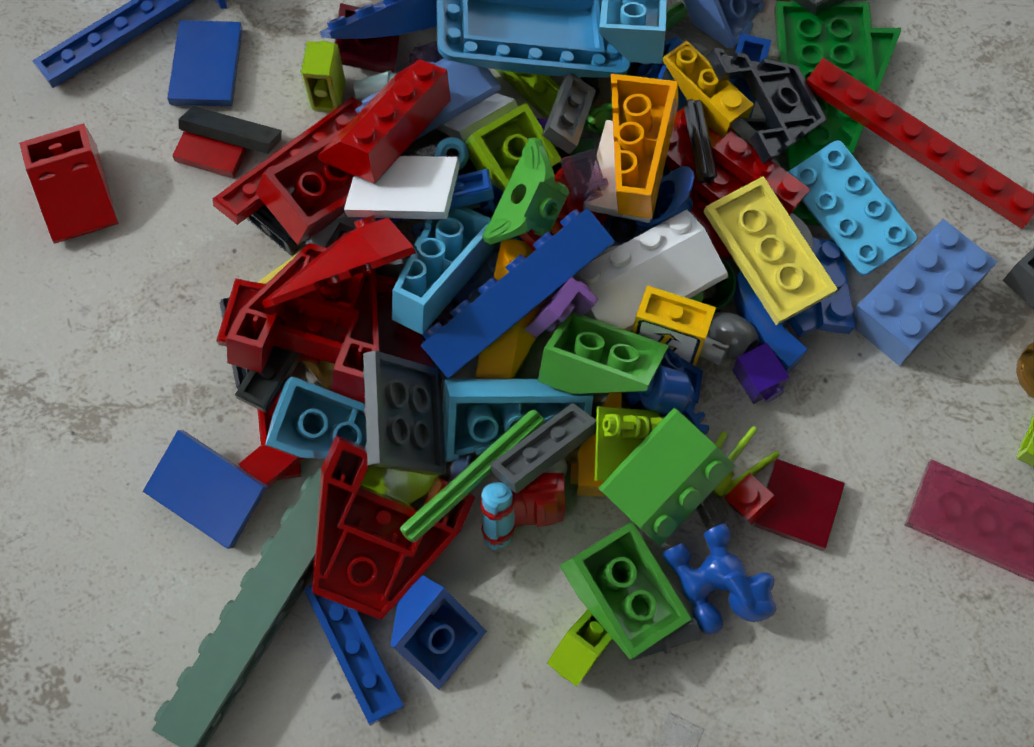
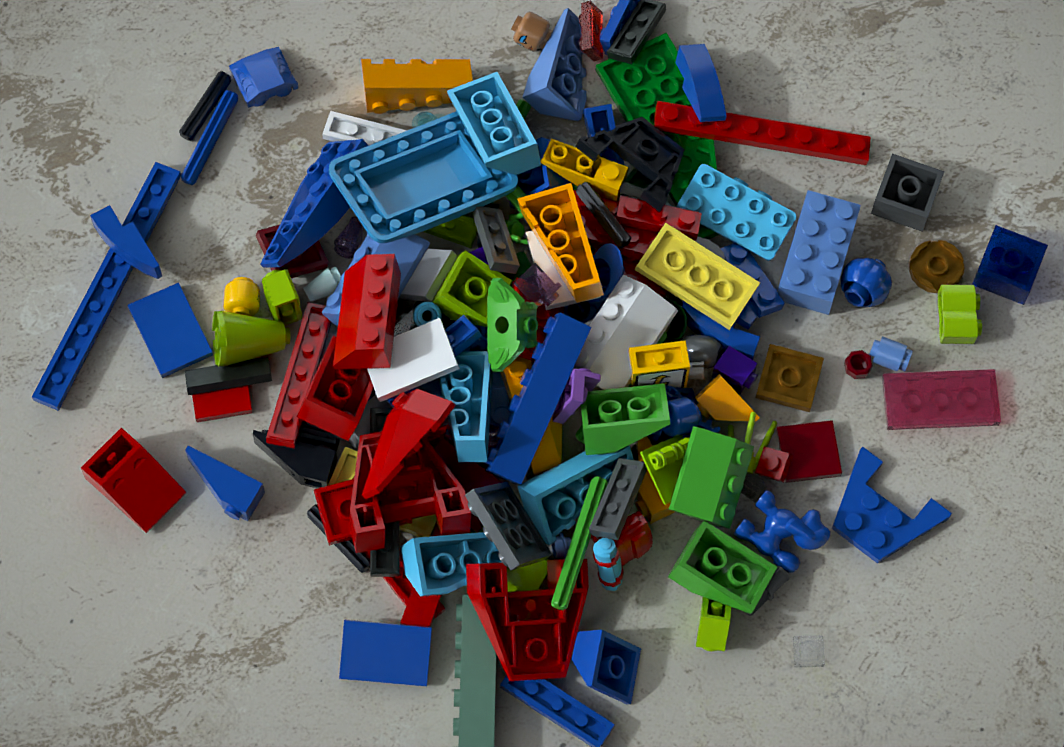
camera: 30 degrees left, 0 degrees up
(157, 235) = (231, 488): none -> blue slope
(249, 248) = (305, 463): none -> black slope
(266, 98) = (246, 337): none -> lime cone
(285, 62) = (242, 296): none -> yellow head
(728, 402) = (723, 402): none -> light orange slope
(819, 412) = (789, 378): none -> pearl gold plate
(836, 625) = (874, 522): none -> blue wing
(880, 59) = (701, 82): none -> blue slope
(906, 435) = (858, 364): none -> dark red tile
(951, 442) = (890, 354): none -> medium blue brick
(961, 349) = (865, 282): none -> blue plant

